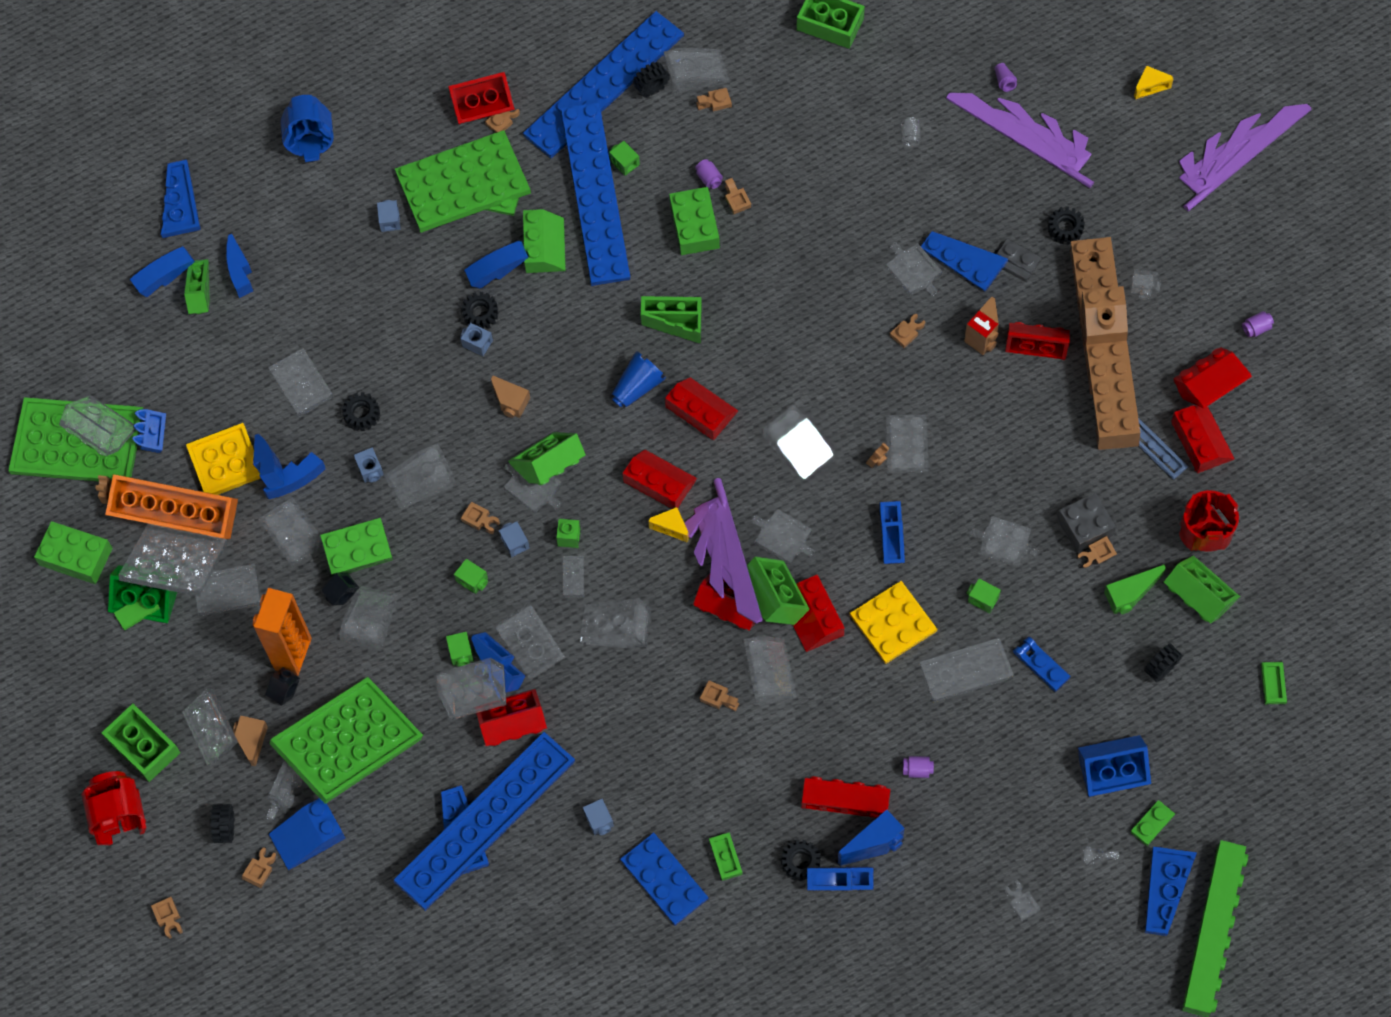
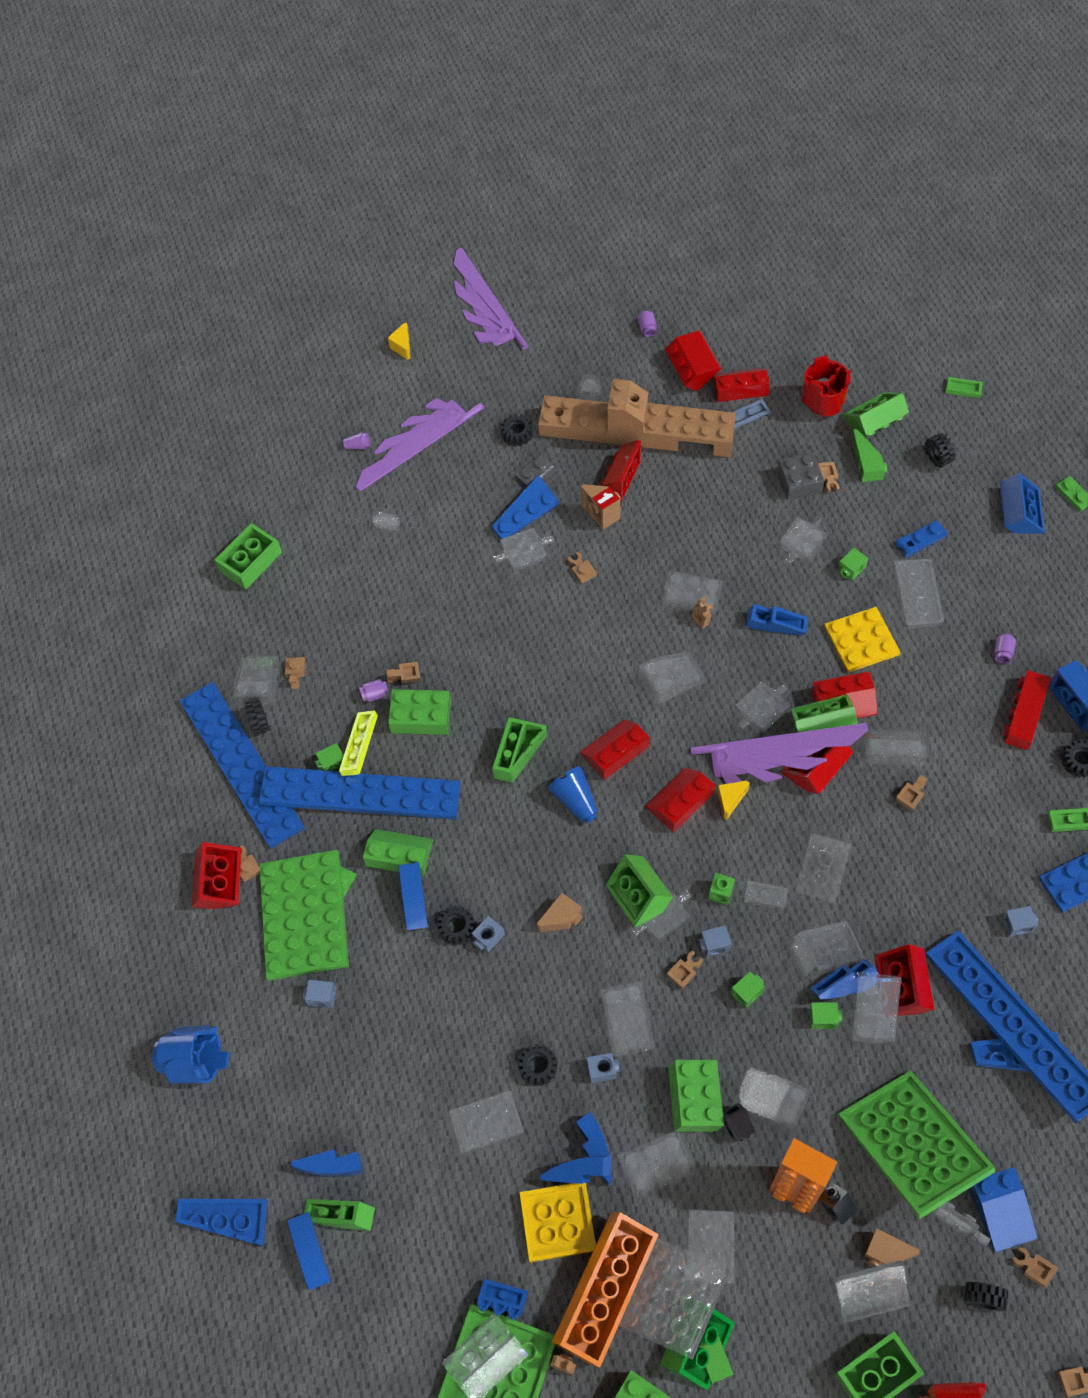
camera: 75 degrees left, 5 degrees down
(645, 175) = (358, 743): none -> neon yellow plate

